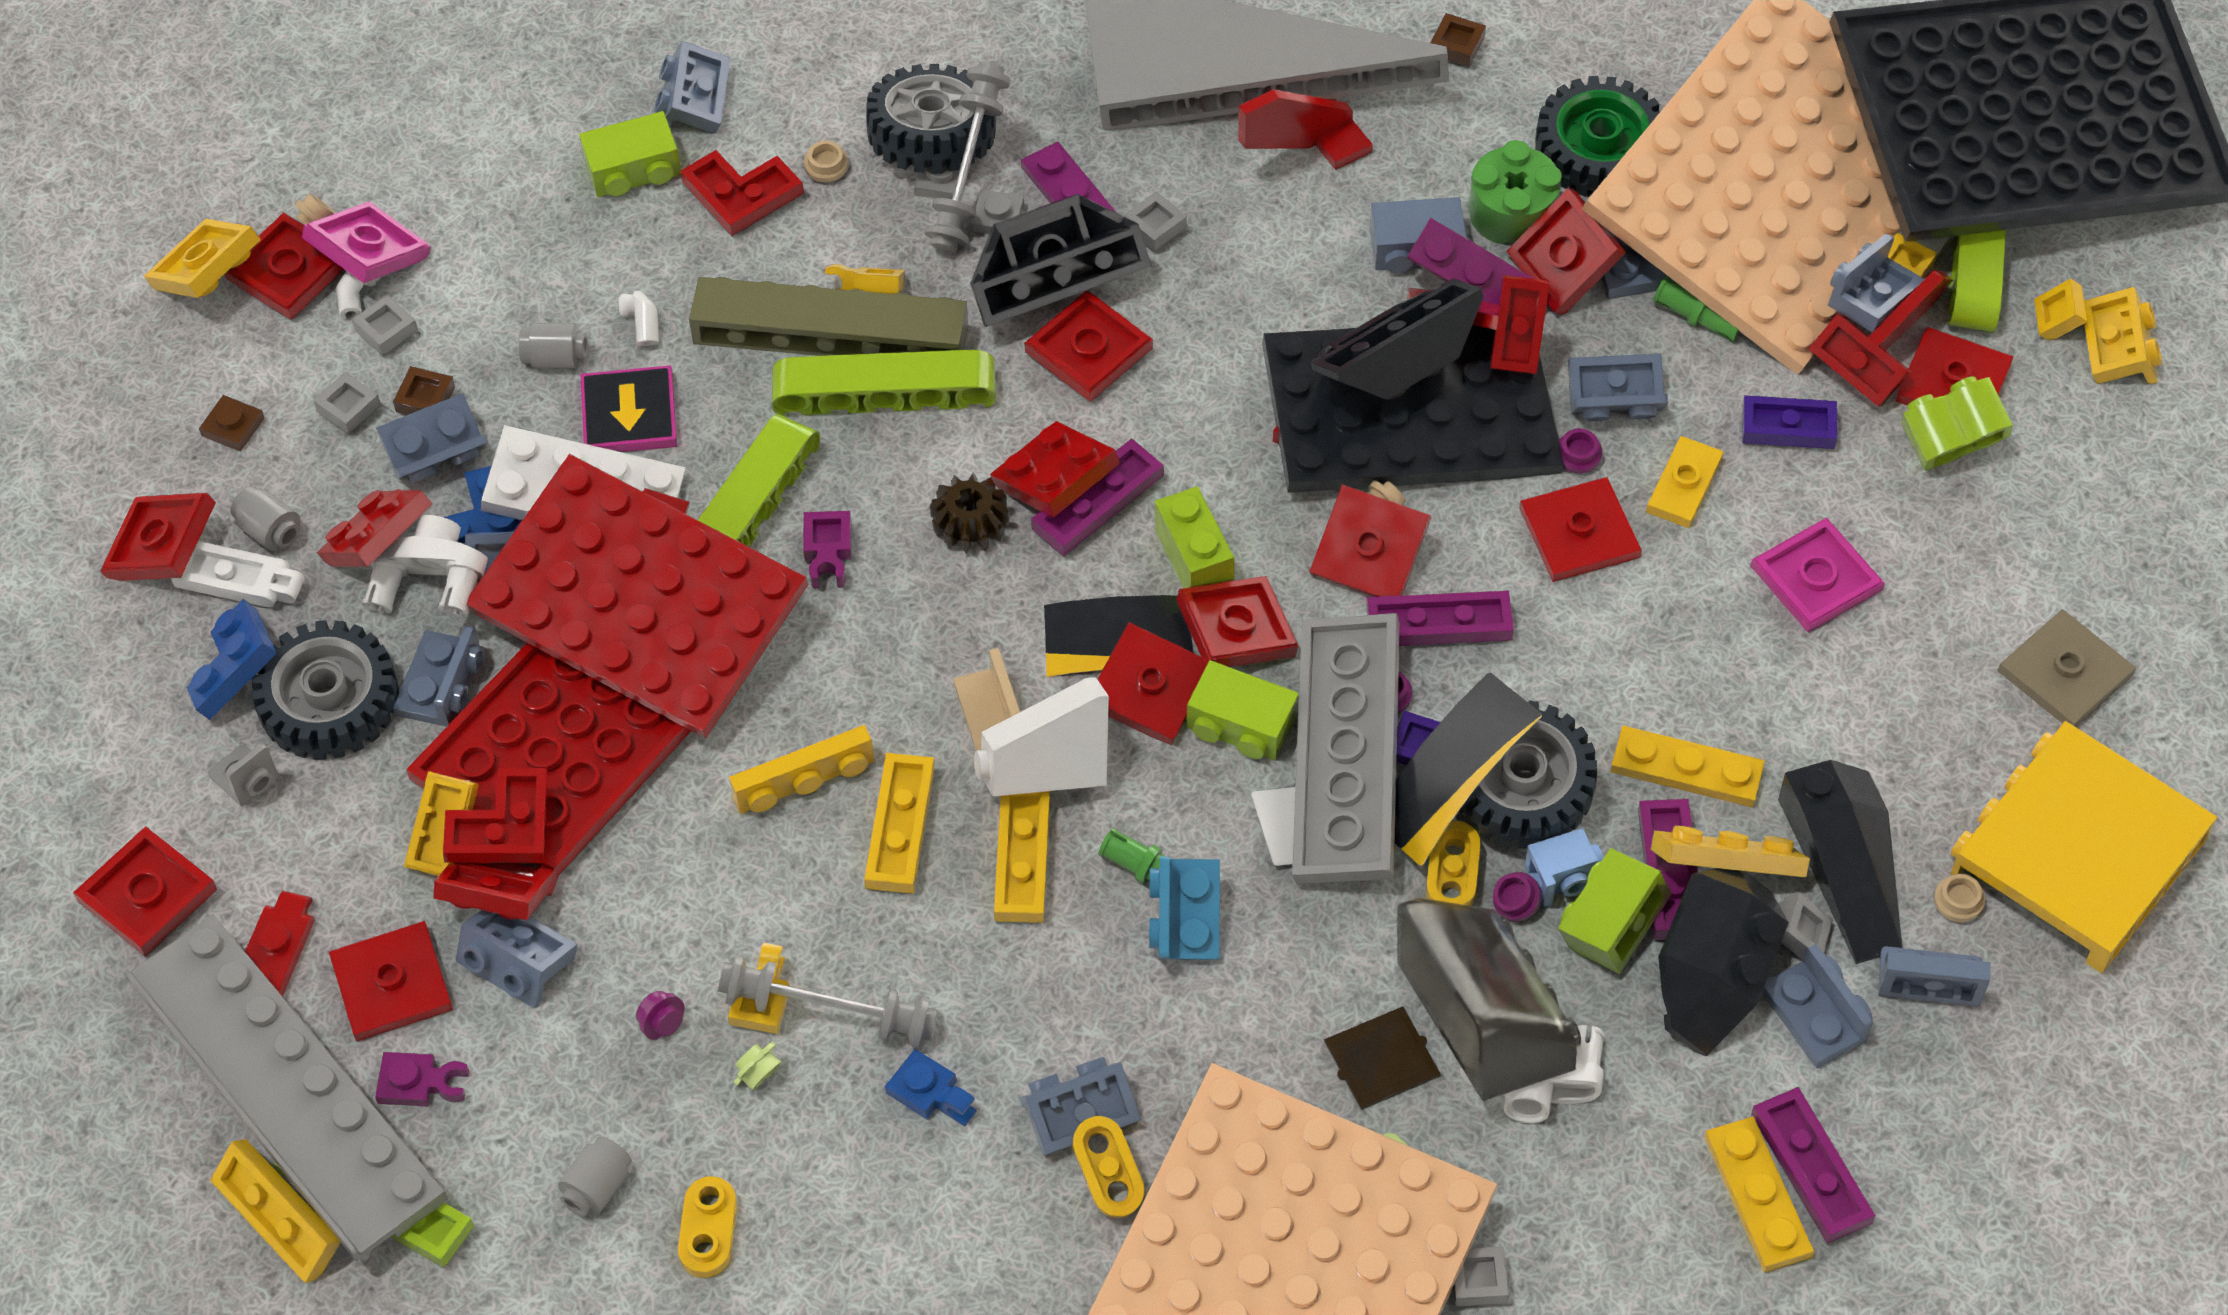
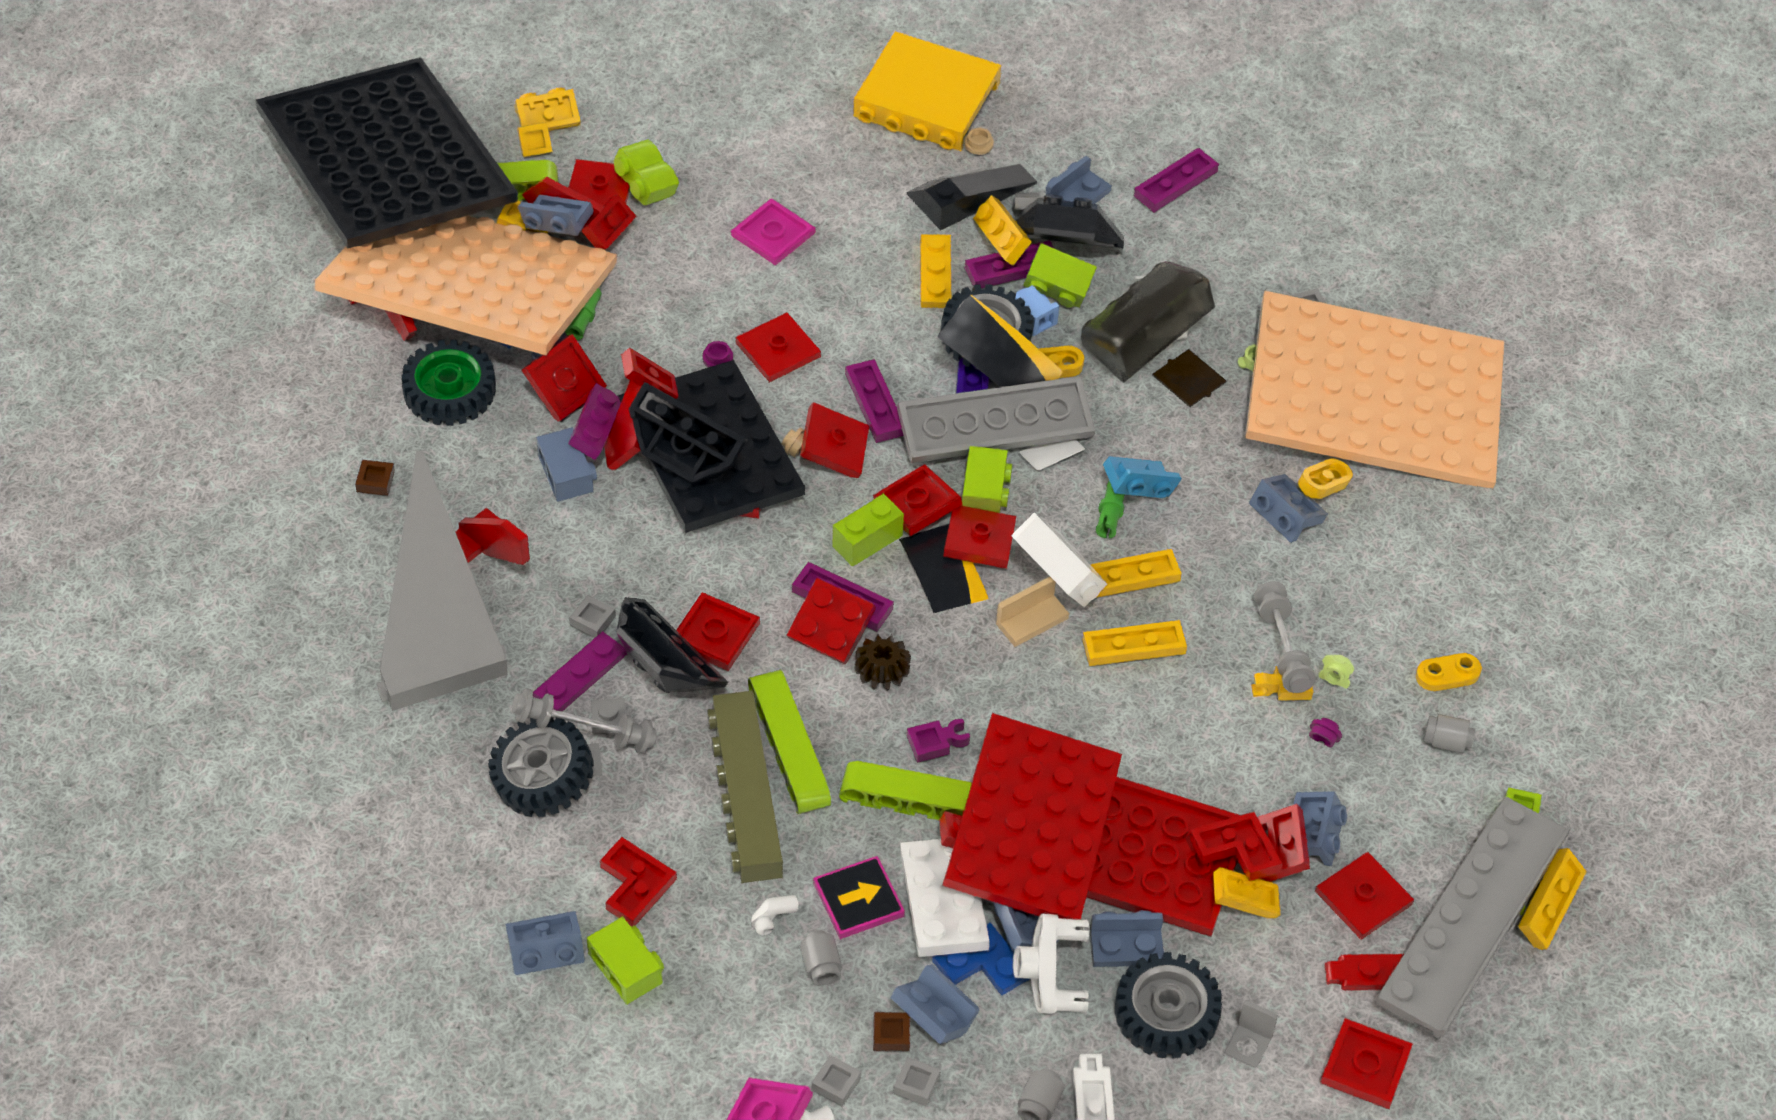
camera: 110 degrees left, 5 degrees down
(243, 653) = (1169, 1057): blue plate -> none
(374, 528) = (1030, 1011): red plate -> none
(413, 1076) = (1425, 860): magenta plate -> none
(802, 770) = (1120, 702): yellow plate -> none
(825, 161) = (590, 835): tan plate -> none
(869, 279) = (696, 770): yellow plate -> none
(929, 1086) = (1308, 586): blue plate -> none
(1511, 191) = (518, 414): bright green brick -> none
(1517, 896) = (1060, 330): magenta plate -> none
(1616, 385) = (665, 339): sand blue bracket -> none
(1684, 481) = (723, 302): yellow plate -> none
(1758, 1194) = (1201, 202): yellow plate -> none
(1789, 422) = (662, 256): dark purple plate -> none
(1933, 976) = (1038, 141): sand blue bracket -> none
(2066, 669) = (802, 114): dark tan plate -> none

